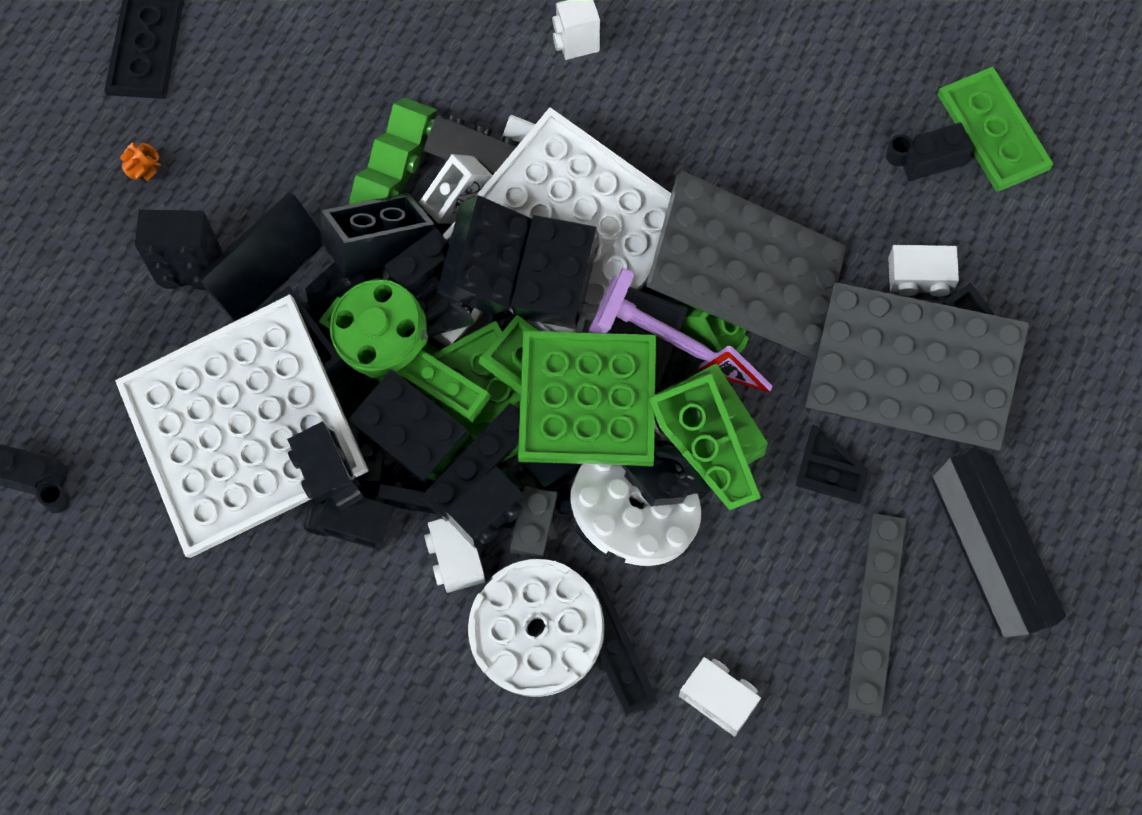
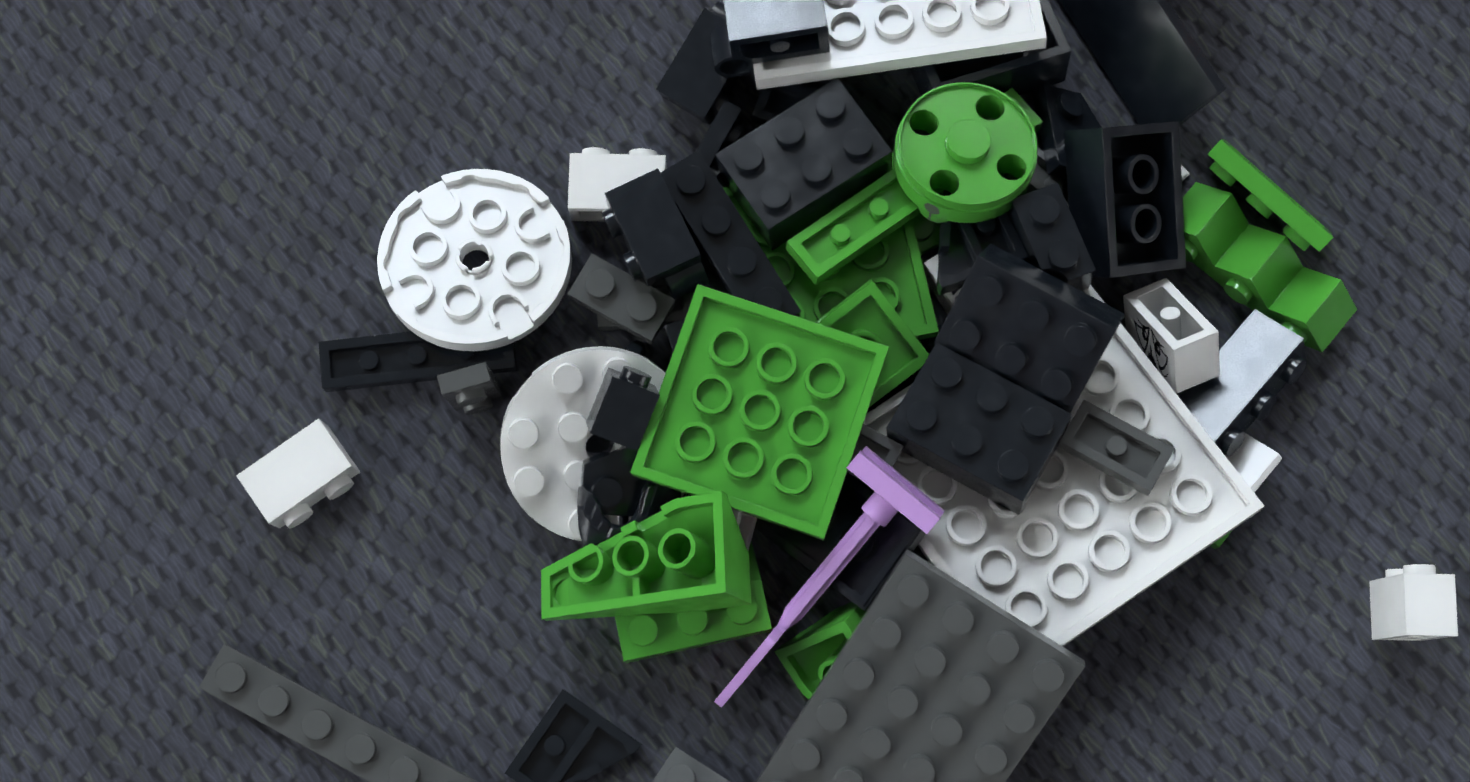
camera: 105 degrees right, 10 degrees up
(348, 158) = (1268, 197): none -> bright green plate
(542, 189) = (1116, 447): none -> dark grey plate
(613, 481) = (623, 407): none -> black brick
(627, 595) = (470, 388): none -> dark grey plate

